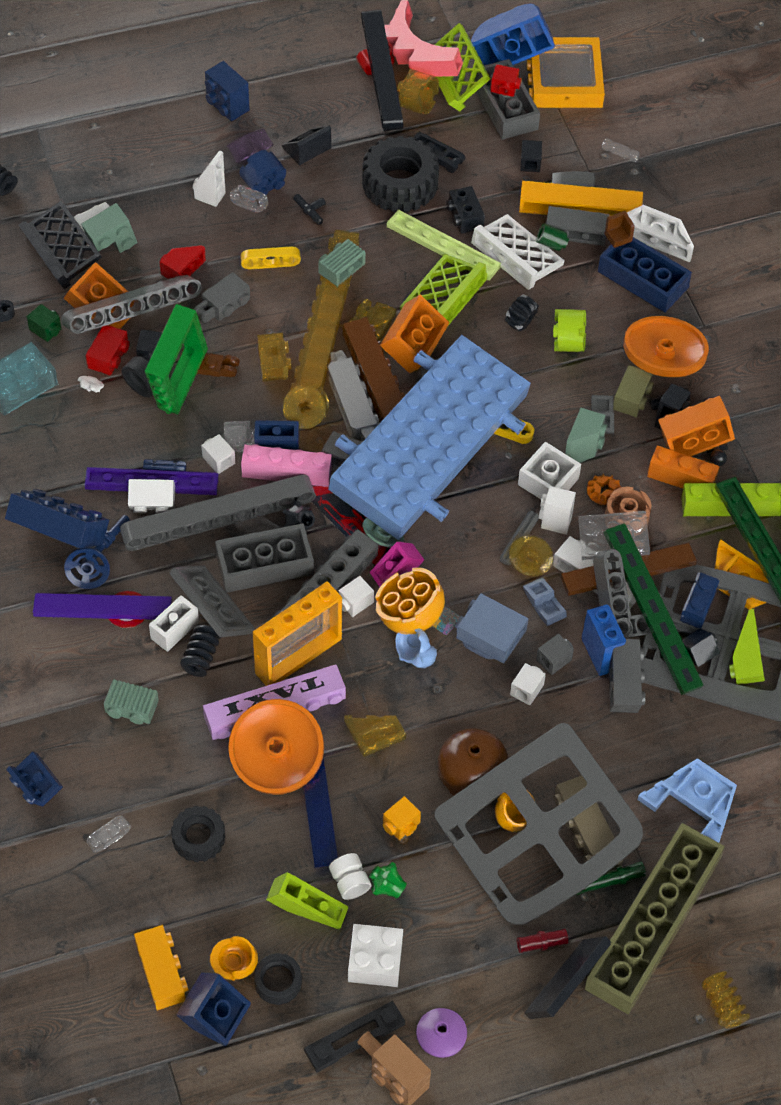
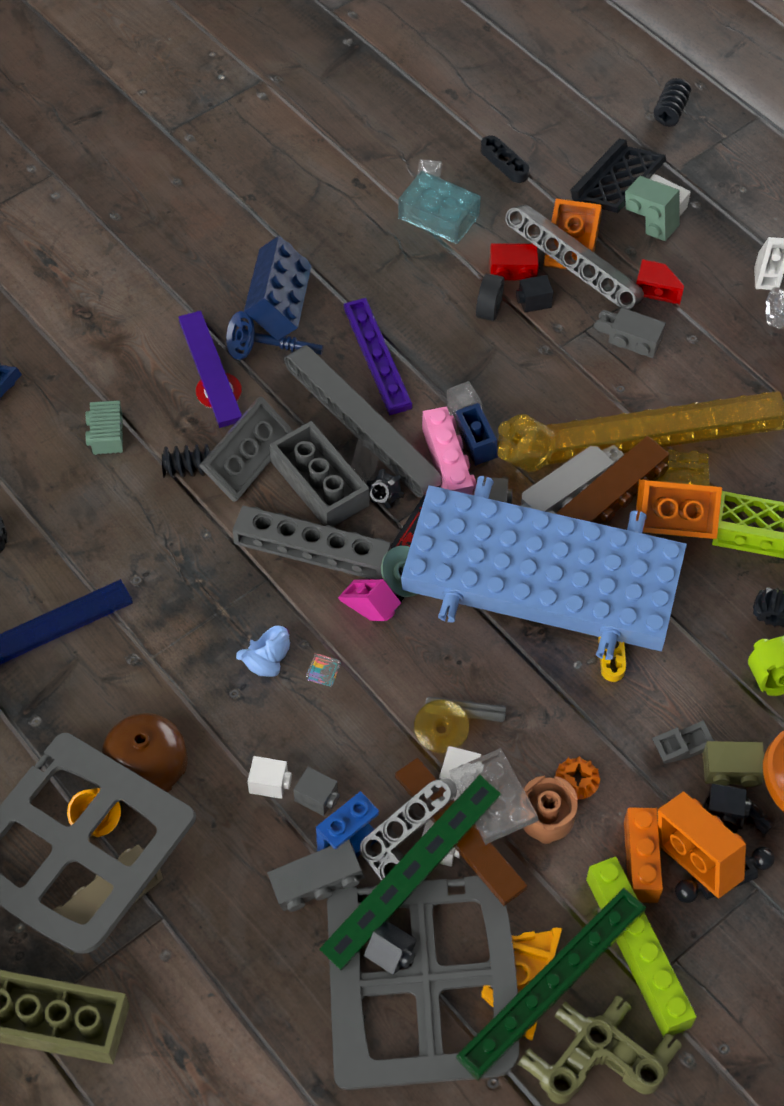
camera: 70 degrees right, 0 degrees up
(44, 322) = (518, 196): dark green brick -> none
(90, 383) = (467, 265): white plant -> none
(151, 495) = (352, 356): white brick -> none
(166, 465) = (399, 358): dark blue axle -> none
(174, 623) = (204, 424): white brick -> none
(180, 329) = (501, 275): green window -> none
(218, 365) = (545, 348): reddish brown hinge -> none
(218, 454) = (432, 393): white brick -> none
(272, 356) = (582, 398): clear yellow brick -> none
(276, 746) = (91, 561): orange dish -> none
(289, 257) = (712, 353): yellow beam -> none
(298, 634) = (219, 526): light orange piece -> none
(307, 690) = (152, 547): lavender brick -> none
(341, 262) = (730, 407): sand green brick -> none
(356, 596) = (311, 574): white brick -> none
(375, 732) = (150, 648): clear yellow wing -> none
(401, 819) = (51, 707): light orange brick -> none
(410, 601) = (315, 621): light orange cylinder -> none
(491, 628) = (320, 714): sand blue brick -> none
(544, 601) = (393, 757): sand blue slope -> none
(547, 469) = (560, 707): white brick -> none
(557, 509) = (511, 729): white brick -> none
(586, 435) = (627, 725): sand green slope -> none
(617, 876) = (51, 954): dark green pin -> none
(698, 789) = (194, 1015): light blue wing -> none
(699, 600) = (449, 924): dark blue brick -> none
(747, 659) = (403, 1007): lime slope -> none

